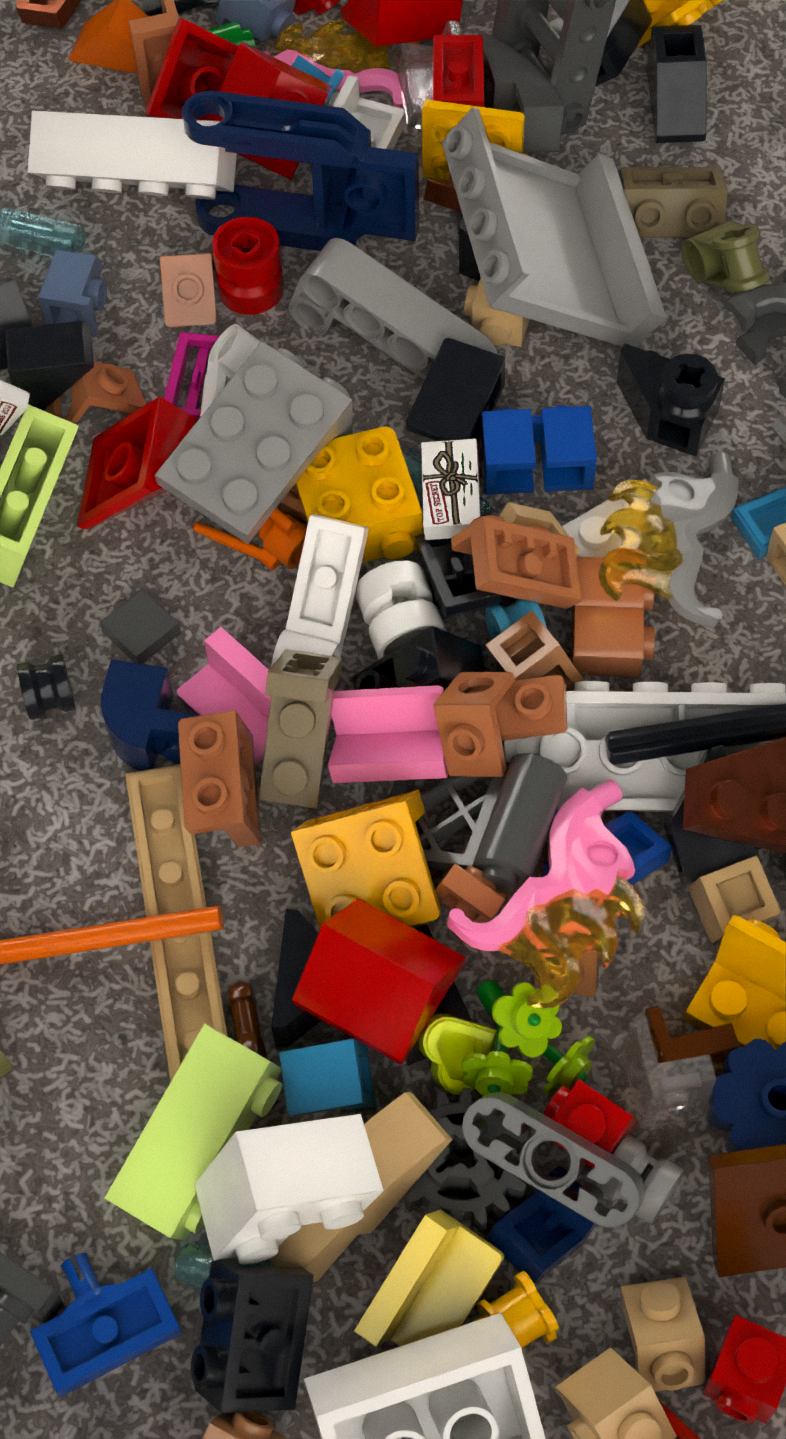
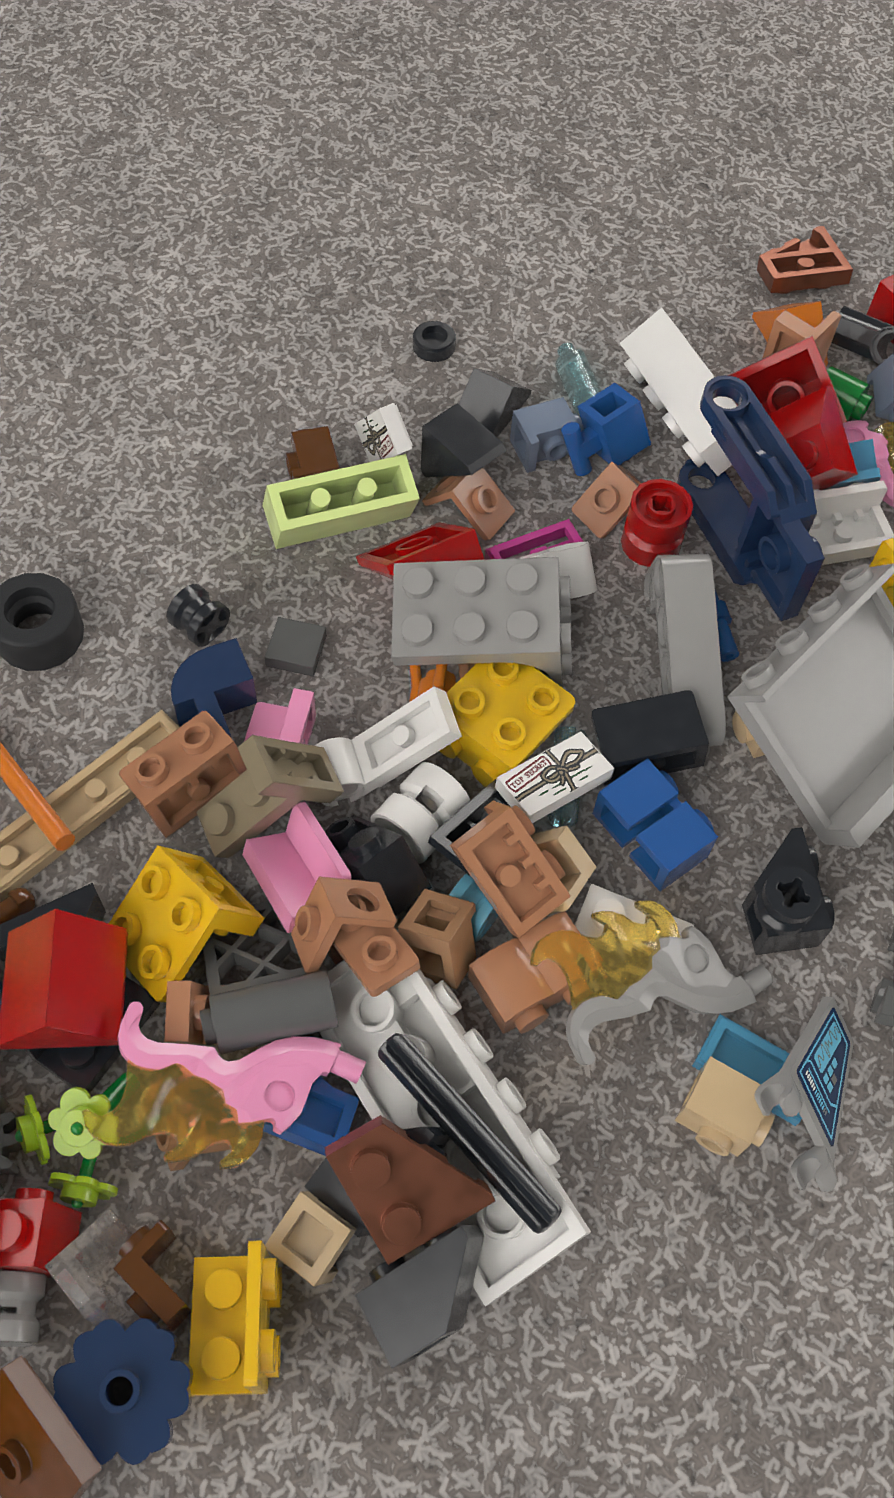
camera: 50 degrees right, 0 degrees up
(120, 236) = (612, 429): none -> blue brick
(447, 1042) = (48, 1077): neon yellow tile -> none

